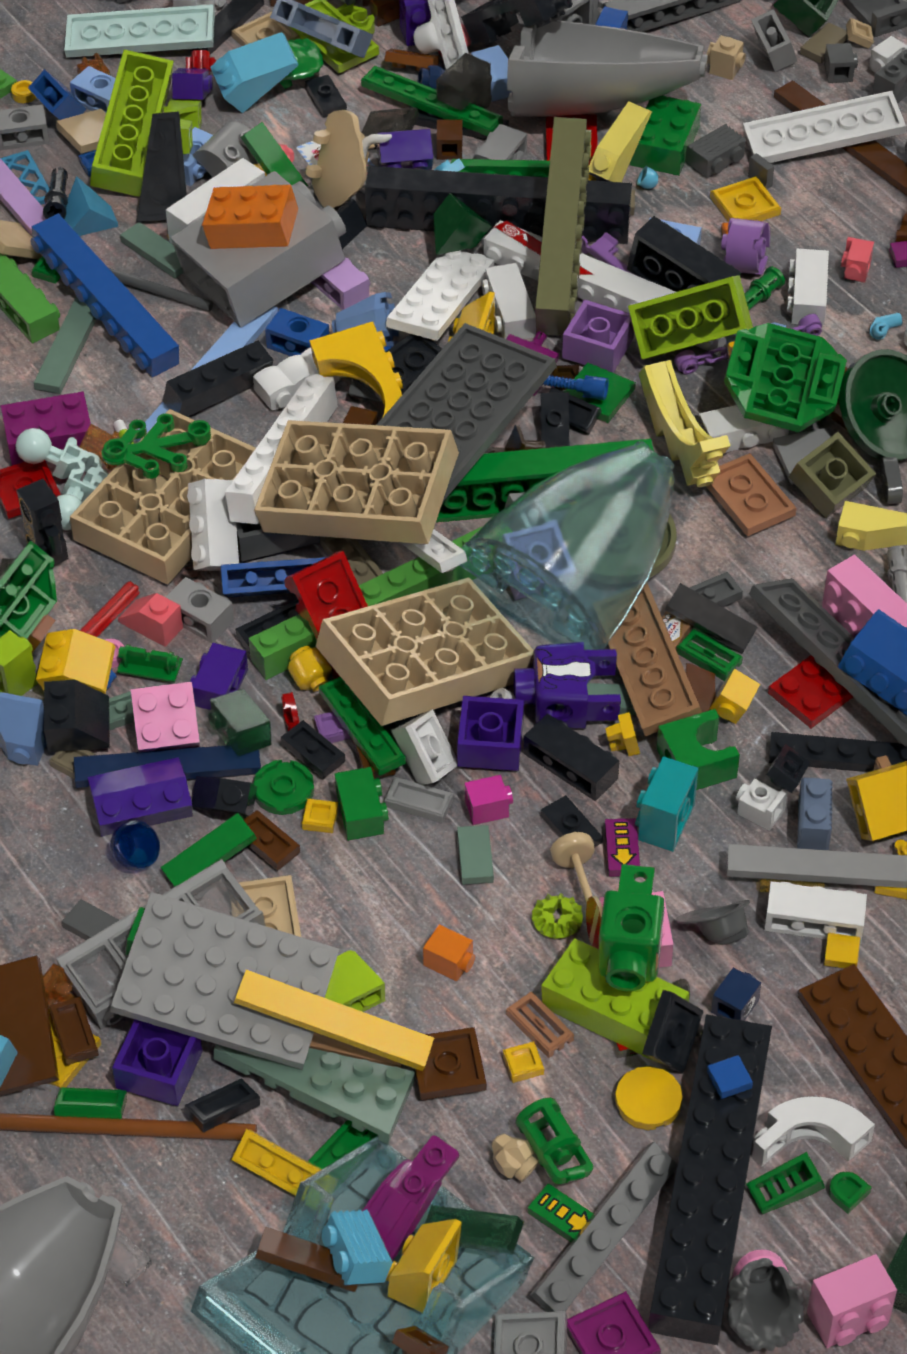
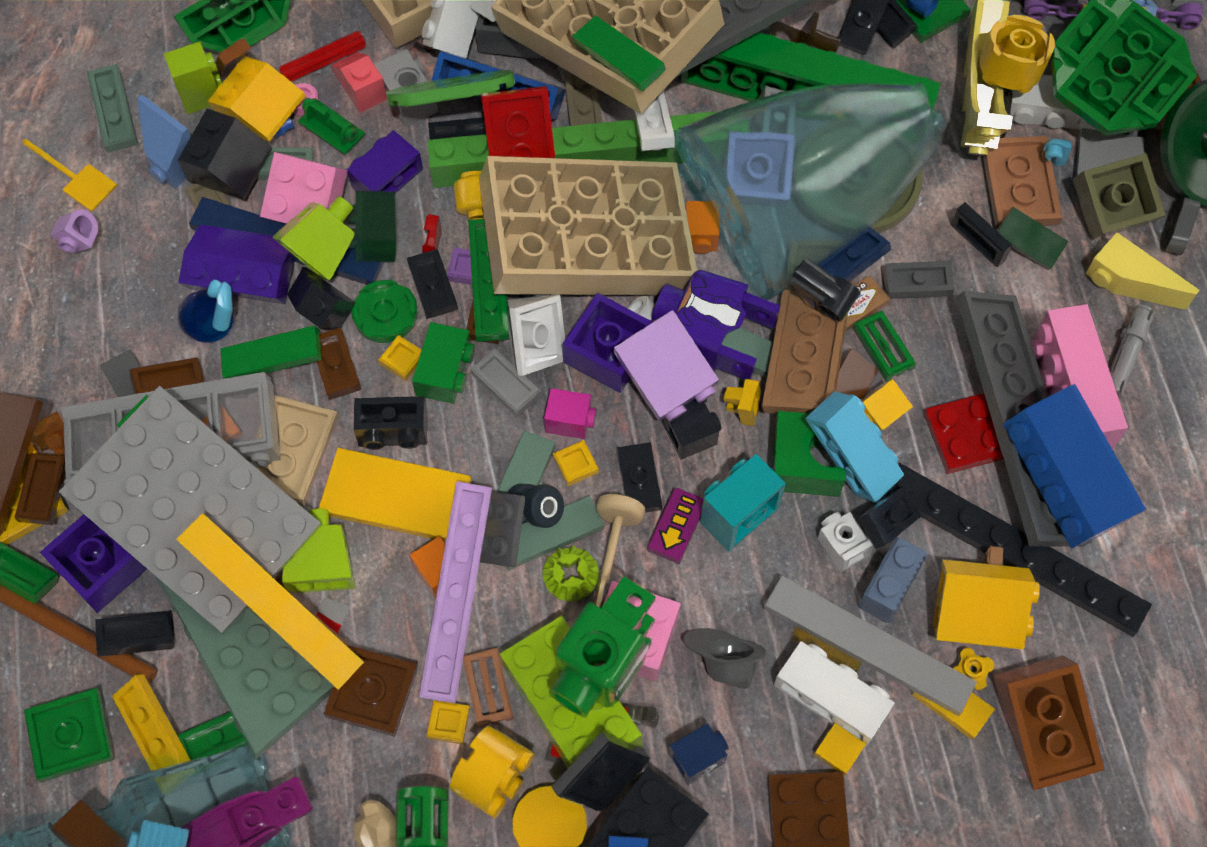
camera: 25 degrees right, 15 degrees up
(123, 905) = (166, 375): none -> reddish brown tile
(152, 827) = (223, 308): none -> medium azure arm
(204, 742) = (318, 236): none -> lime torso
(213, 1201) = (68, 735): none -> green plate
(251, 587) = (450, 88): none -> bright green tile
(345, 860) = (390, 422): none -> black brick
(378, 916) = (390, 494): none -> yellow tile
(392, 499) = (619, 53): none -> green tile
(477, 958) = (455, 592): none -> lavender tile
(485, 895) = (507, 512): none -> dark grey plate
(512, 836) = (575, 463): none -> yellow tile
(518, 616) = (703, 226): none -> orange brick
(521, 894) = (577, 522): none -> sand green tile
(555, 724) = (666, 367): none -> lavender brick
(583, 1071) = (491, 771): none -> yellow brick
(647, 605) = (853, 258): none -> dark blue tile
(653, 622) = (831, 293): none -> black piece
(699, 394) = (1016, 53): none -> yellow brick
(711, 618) = (904, 307): black tile -> none
(733, 724) = (855, 445): none -> medium azure brick
(740, 544) = (981, 234): none -> black tile
(765, 460) = (1057, 150): none -> medium azure arm
(780, 532) = (1031, 238): none -> dark green tile

